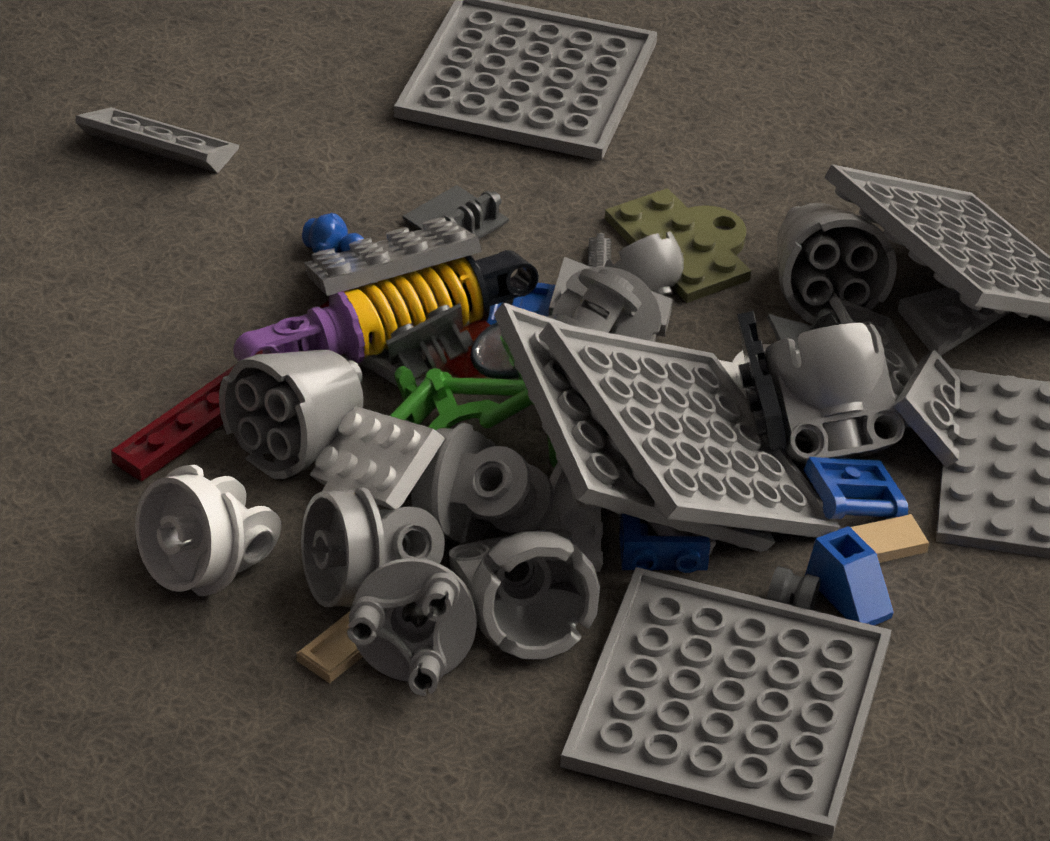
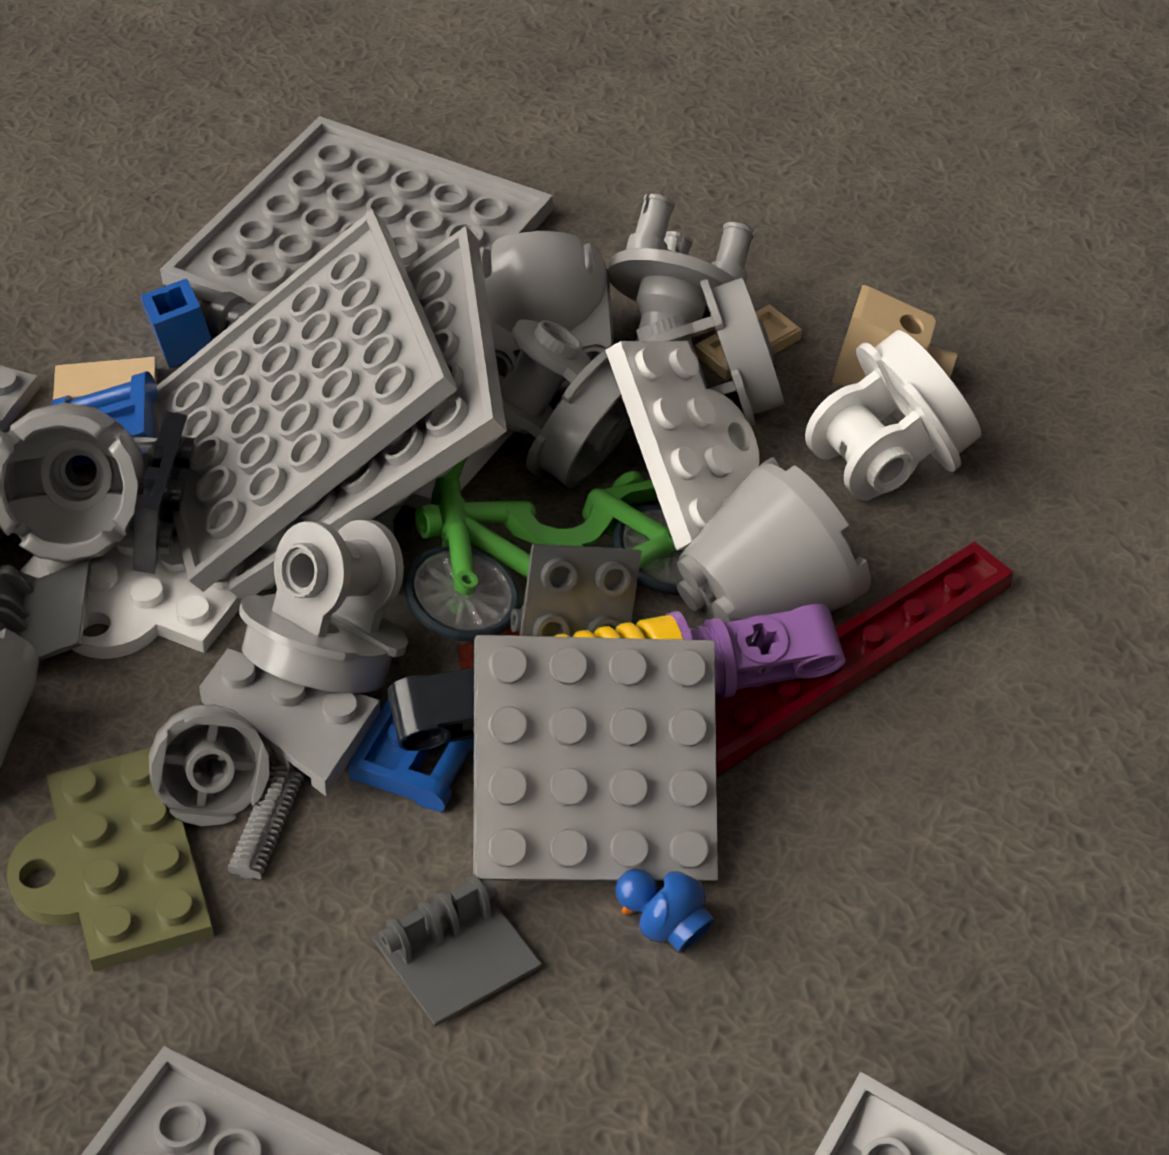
camera: 165 degrees left, 5 degrees up
(216, 610) = (877, 318): none -> tan torso

